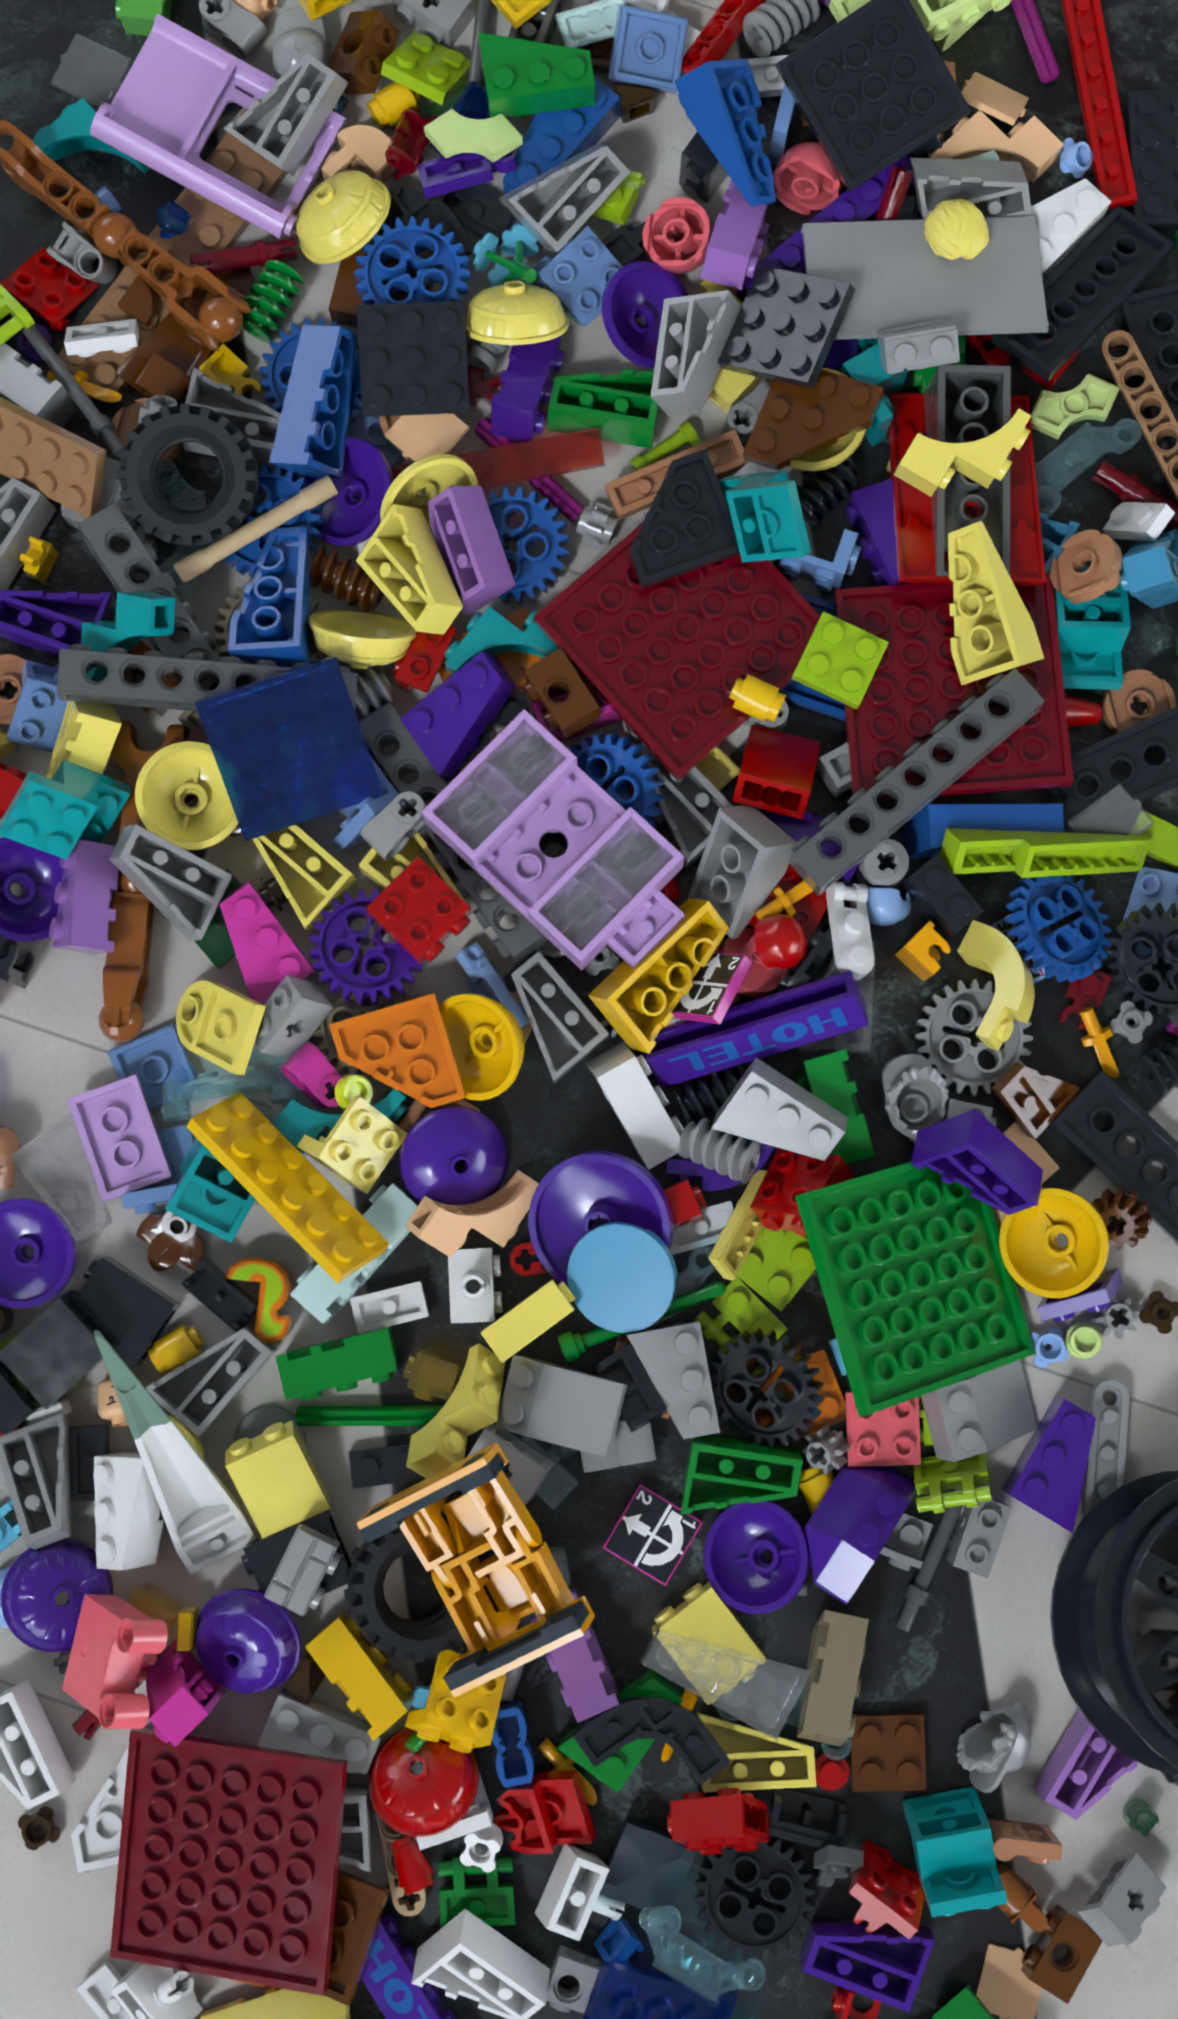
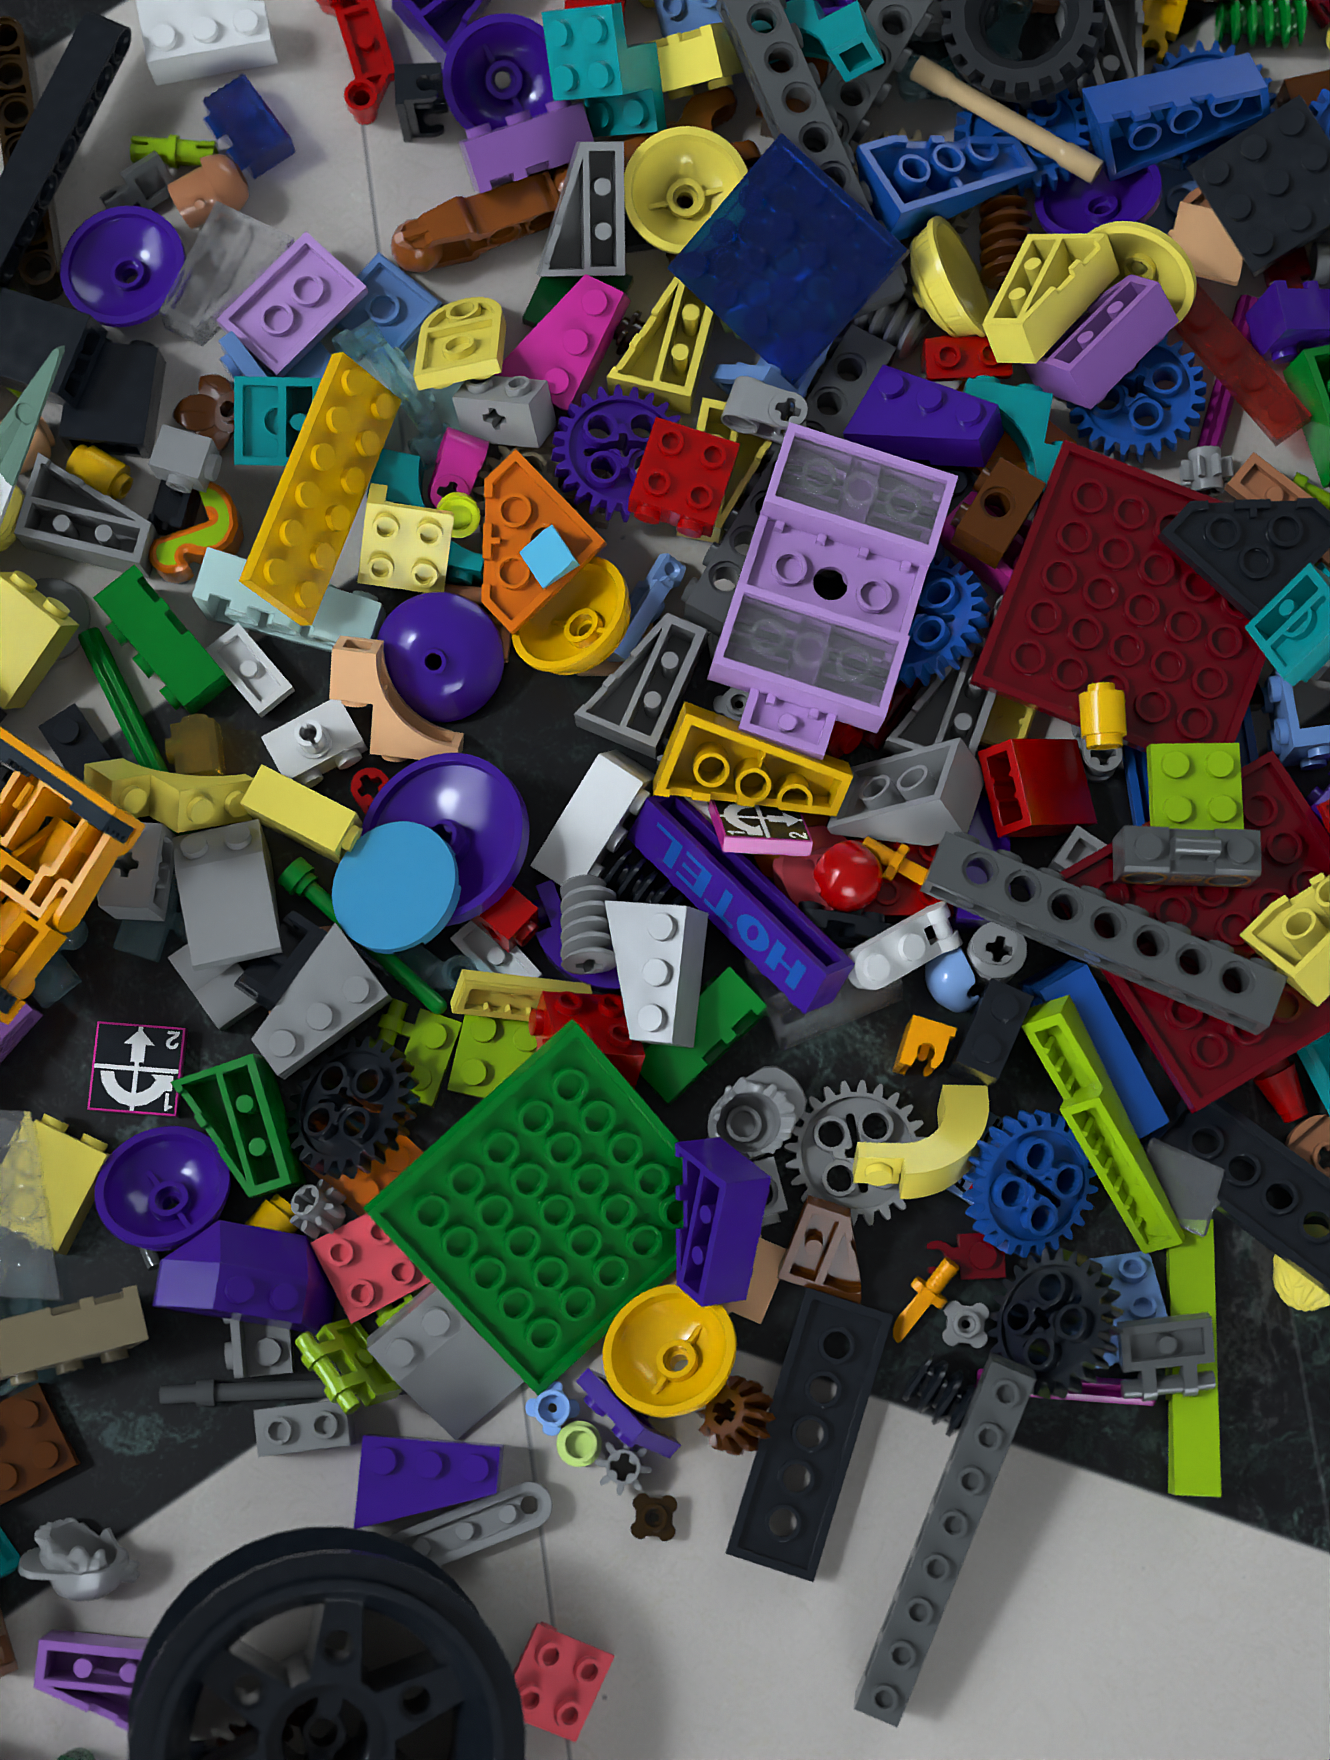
camera: 65 degrees right, 5 degrees down
(209, 1278) = (185, 459): none -> light grey brick
(426, 1041) = (548, 557): none -> medium azure slope
(889, 693) = (1186, 856): none -> dark grey piece

